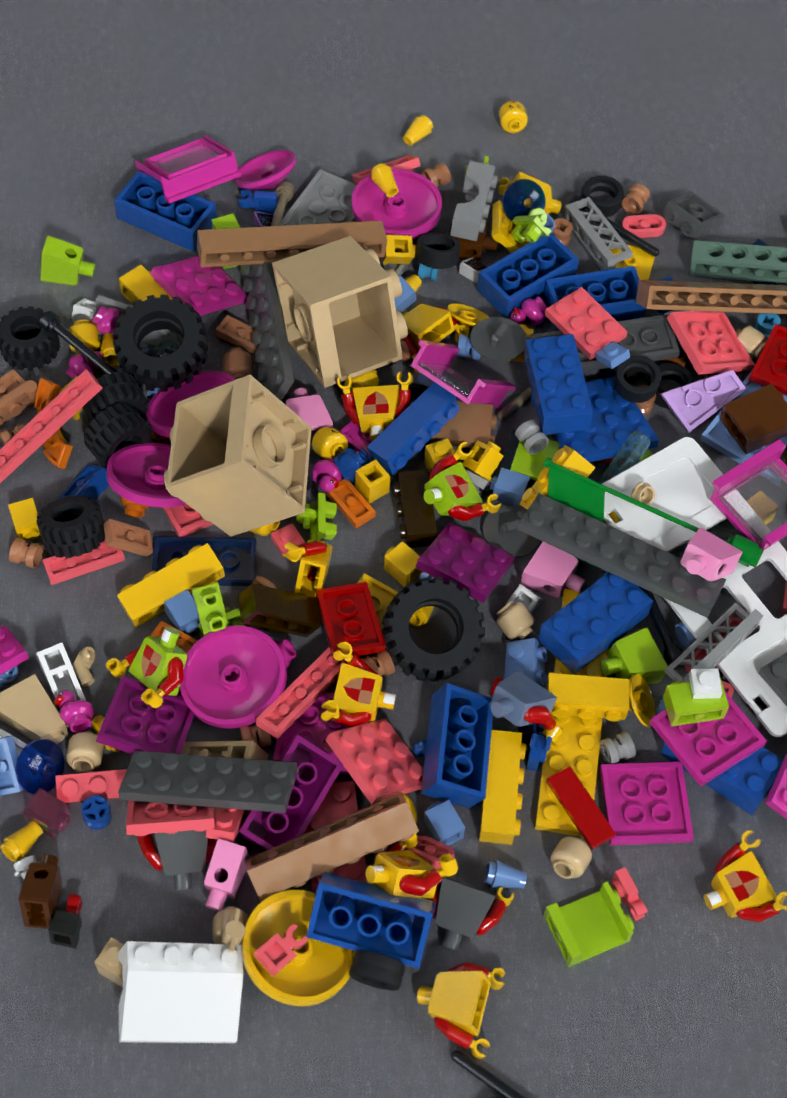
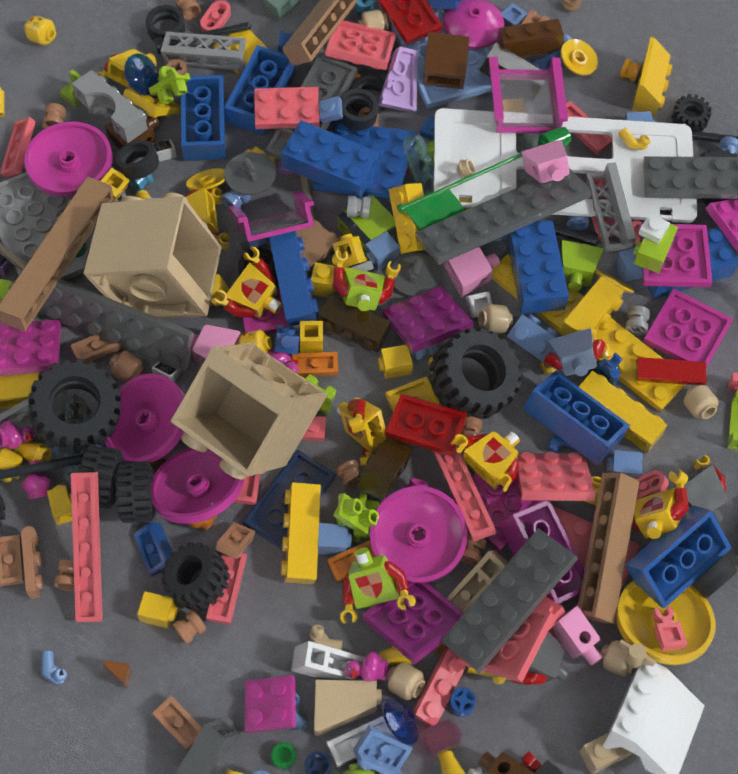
camera: 55 degrees left, 5 degrees up
(56, 447) = (60, 535): orange tile -> none
(384, 179) = (43, 150): yellow cone -> none
(502, 875) = (686, 454): medium blue cone -> none
(533, 309) = (237, 136): dark pink animal -> none

